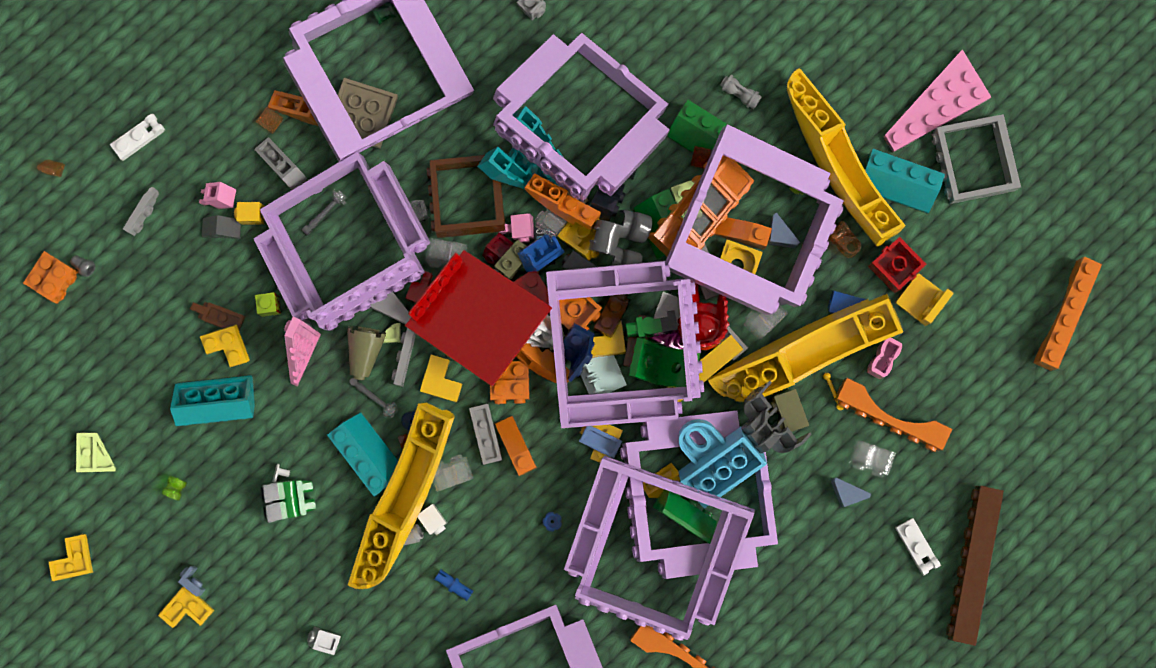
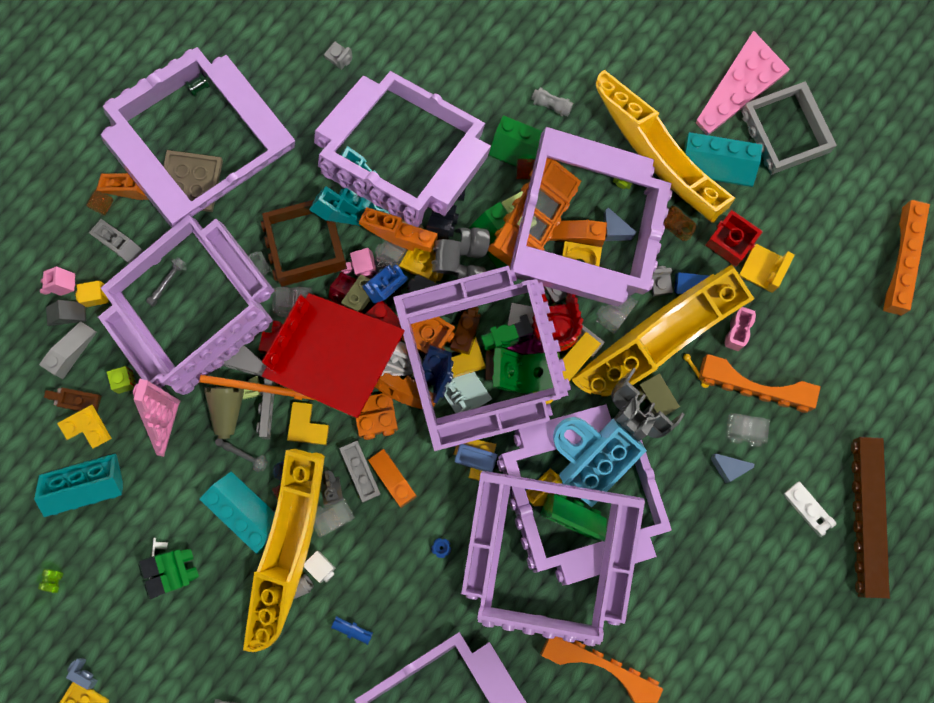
camera: 10 degrees left, 5 degrees down
(219, 265) = (67, 350): none -> light grey slope
(391, 333) = (251, 386): none -> orange bar
(455, 447) = (331, 488): none -> dark grey hinge
(816, 296) = (662, 281): none -> light grey bracket

